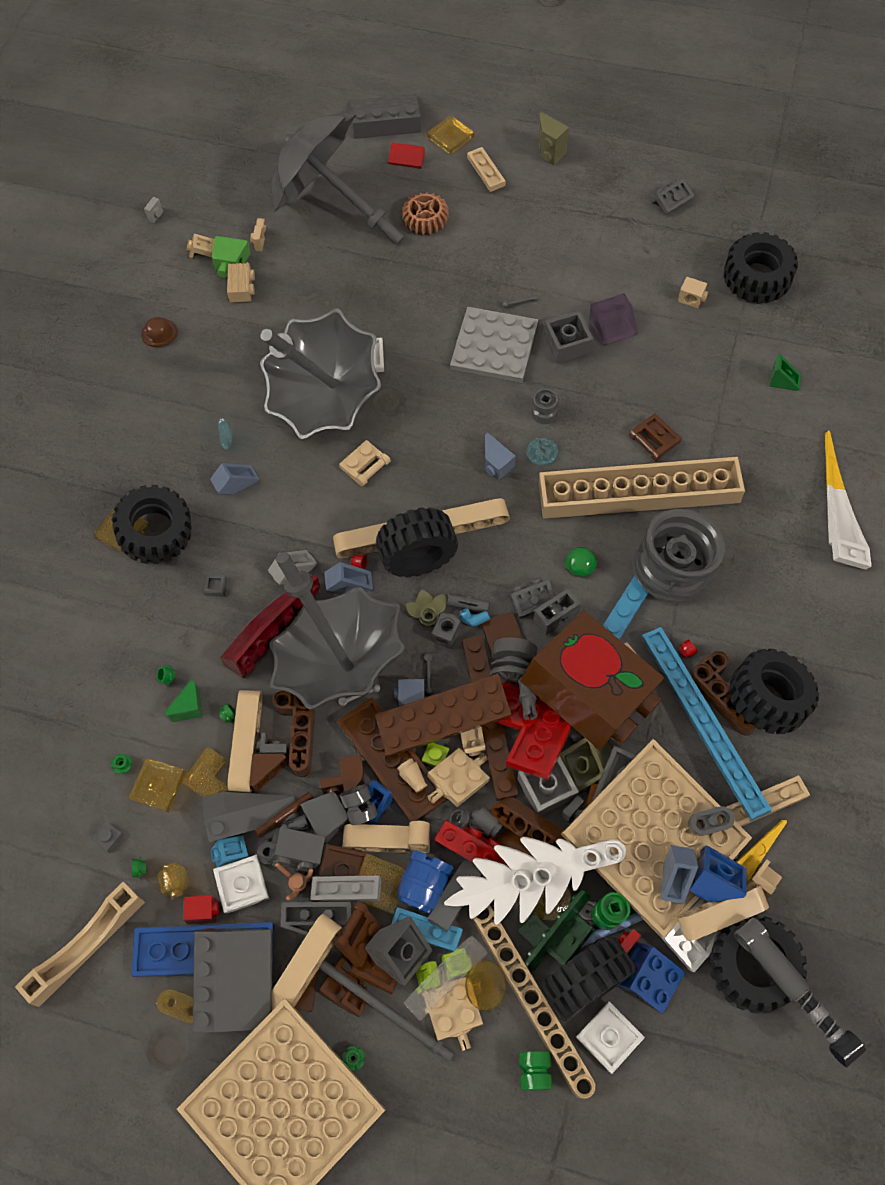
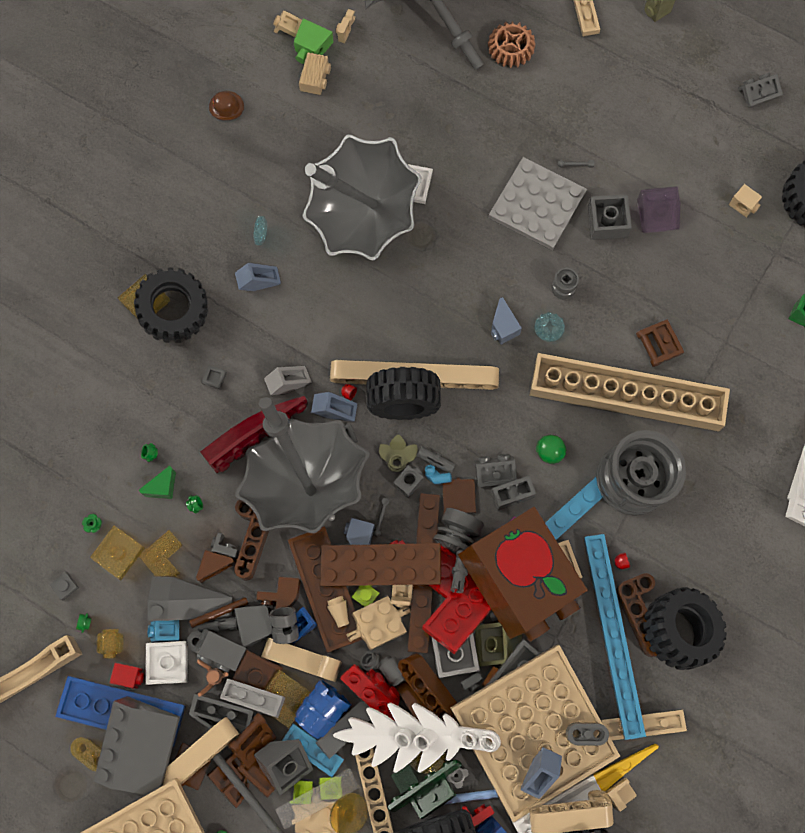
camera: 15 degrees right, 10 degrees up
(244, 740) = (202, 533): tan beam -> none
(361, 459) = (379, 288): tan plate -> none
(610, 911) = (474, 785): green wheel -> none
(719, 877) = (578, 785): blue slope -> none

